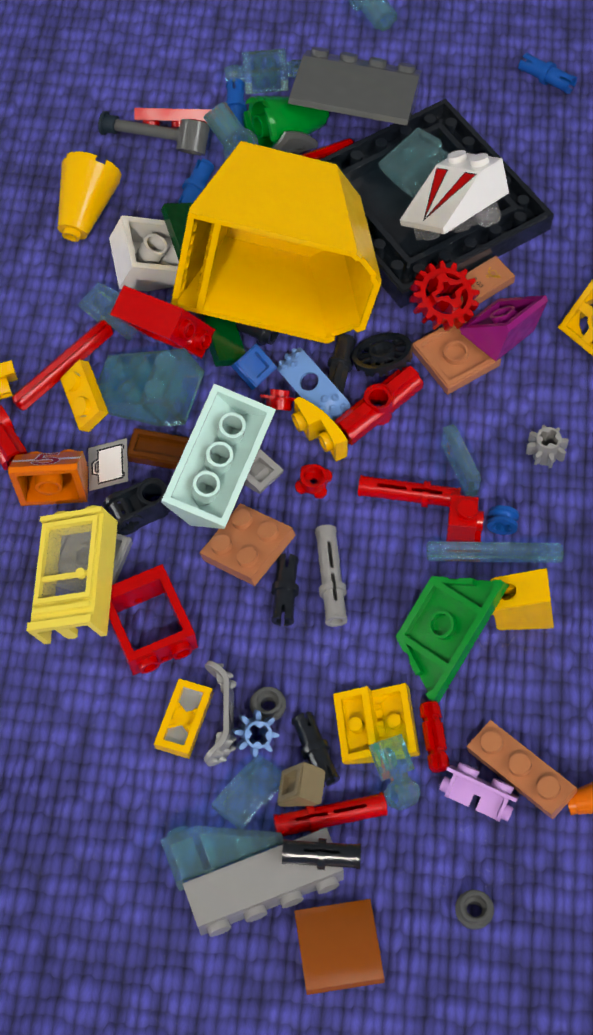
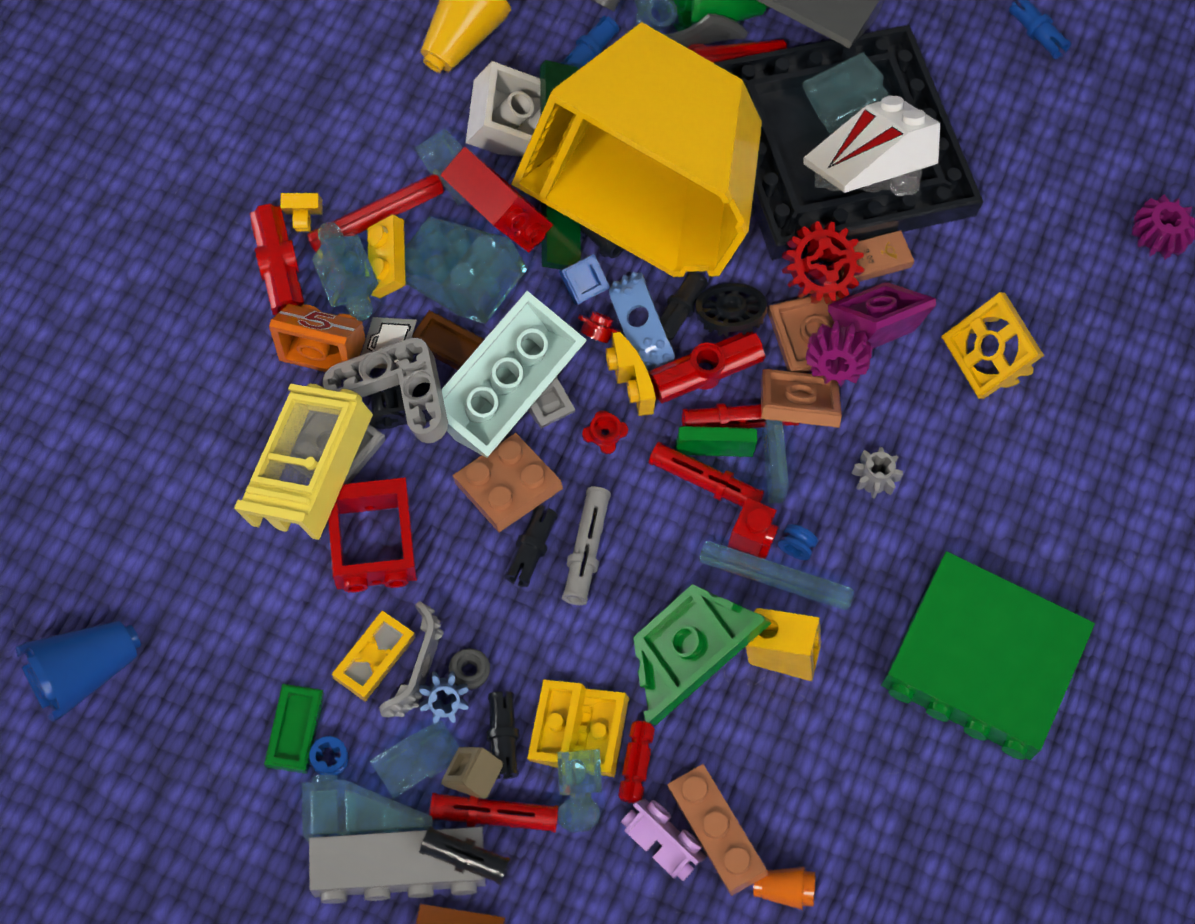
camera: 10 degrees right, 5 degrees up
(54, 416) = (345, 271): none -> clear light blue piece
(136, 800) = (294, 728): none -> green tile
(137, 480) = (407, 376): none -> light grey beam
(176, 802) = (336, 746): none -> blue bush
(407, 441) = (721, 416): none -> red pin
(408, 460) = (716, 441): none -> green tile
(464, 406) = (799, 398): none -> nougat tile
(483, 360) = (839, 353): none -> magenta gear

